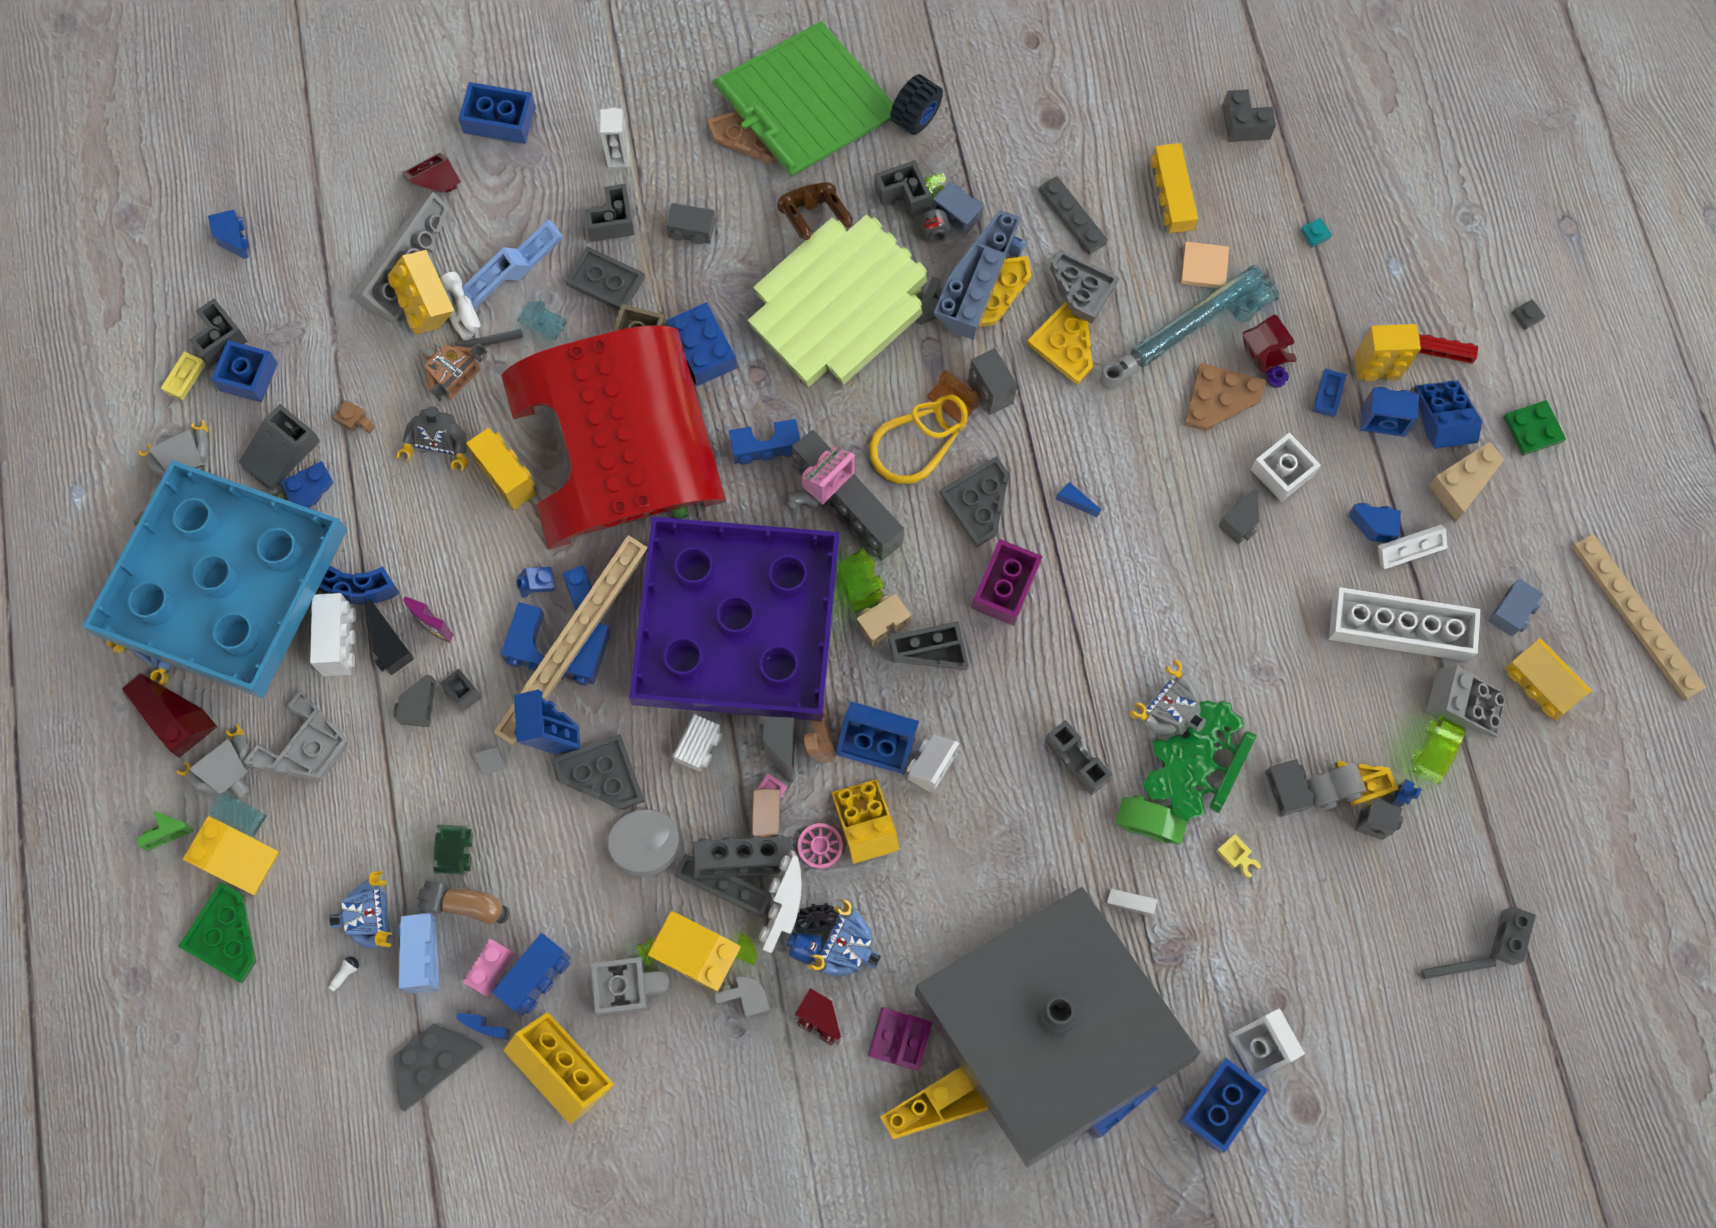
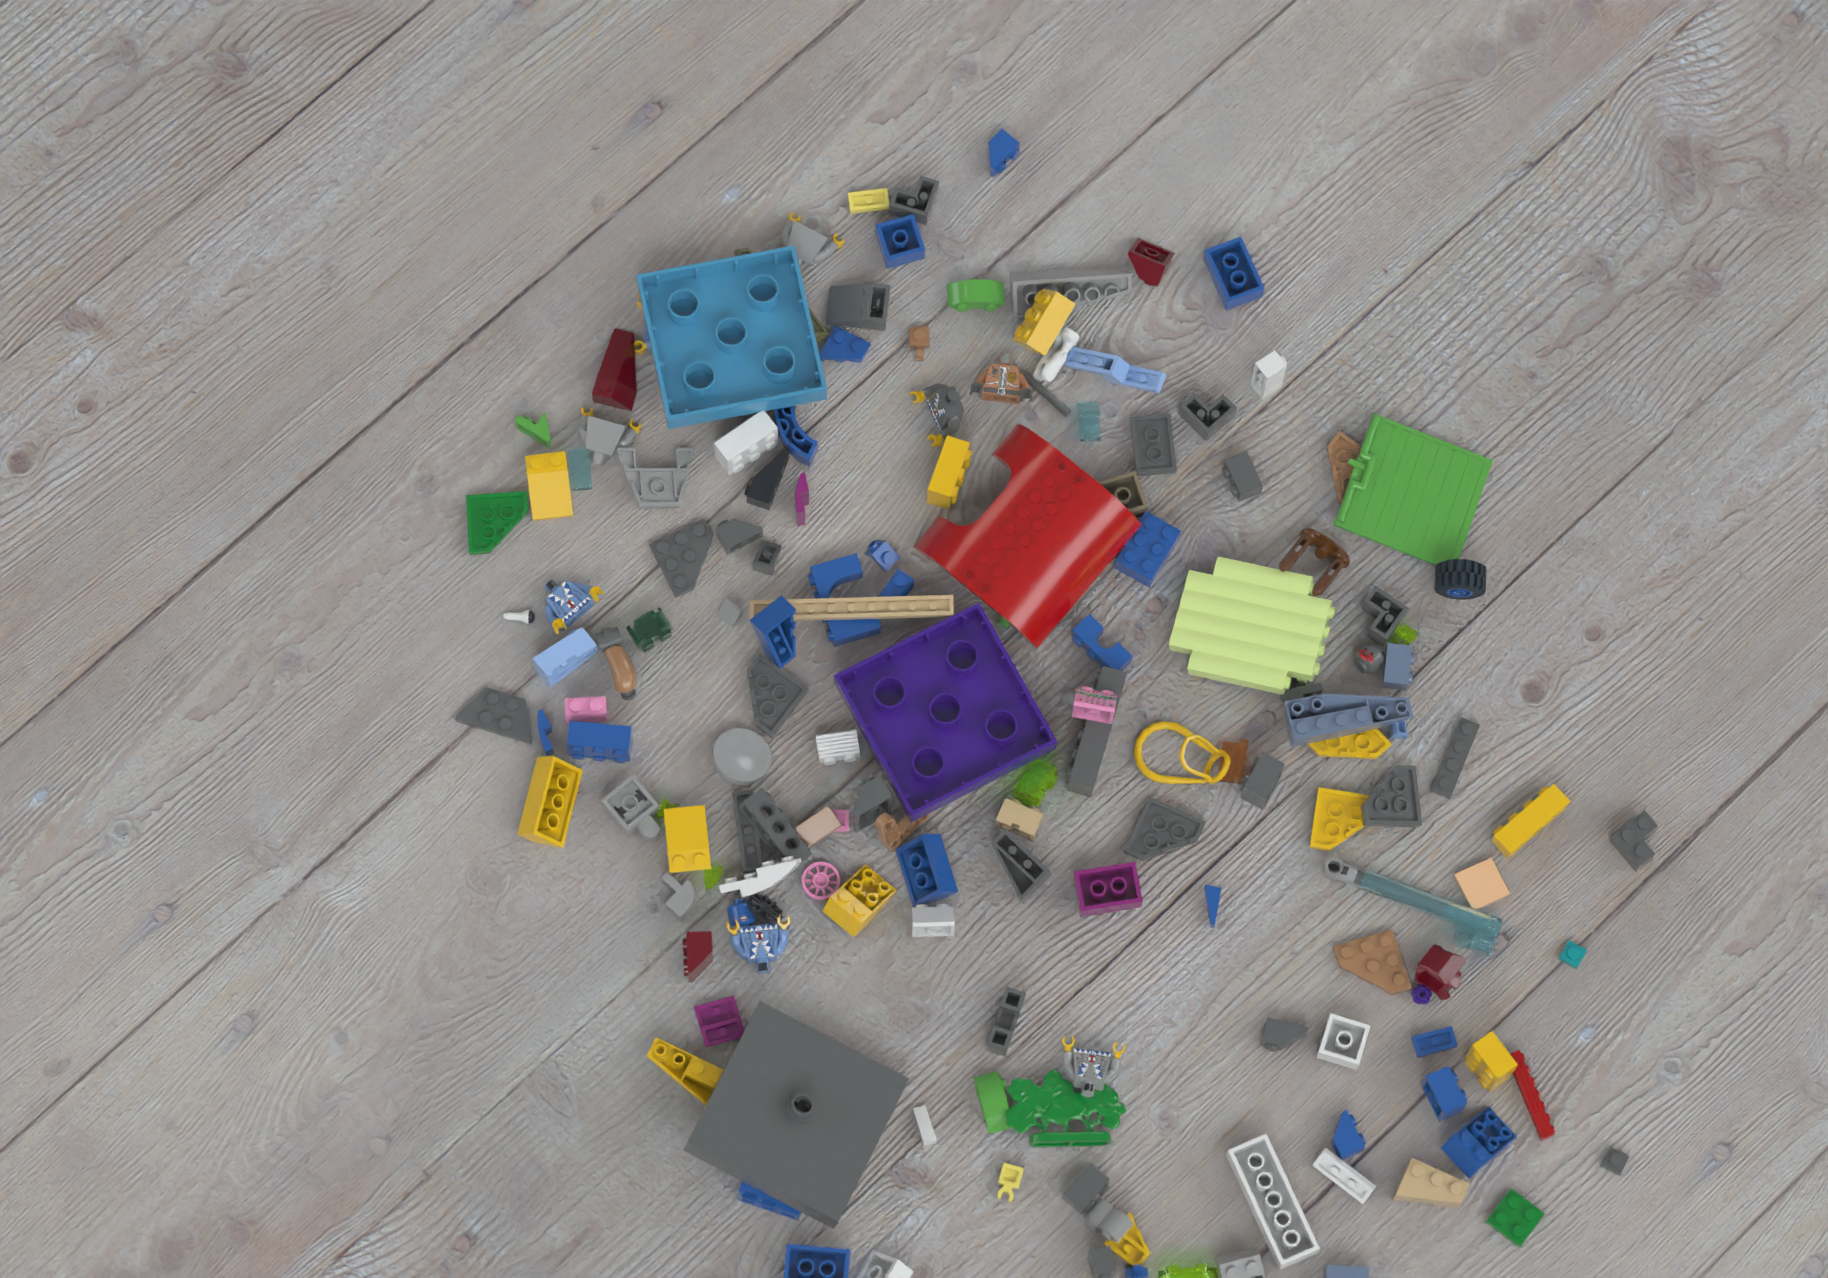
camera: 55 degrees right, 0 degrees up
(348, 338) = (975, 295): none -> bright green brick
(399, 770) = (683, 556): none -> dark grey plate

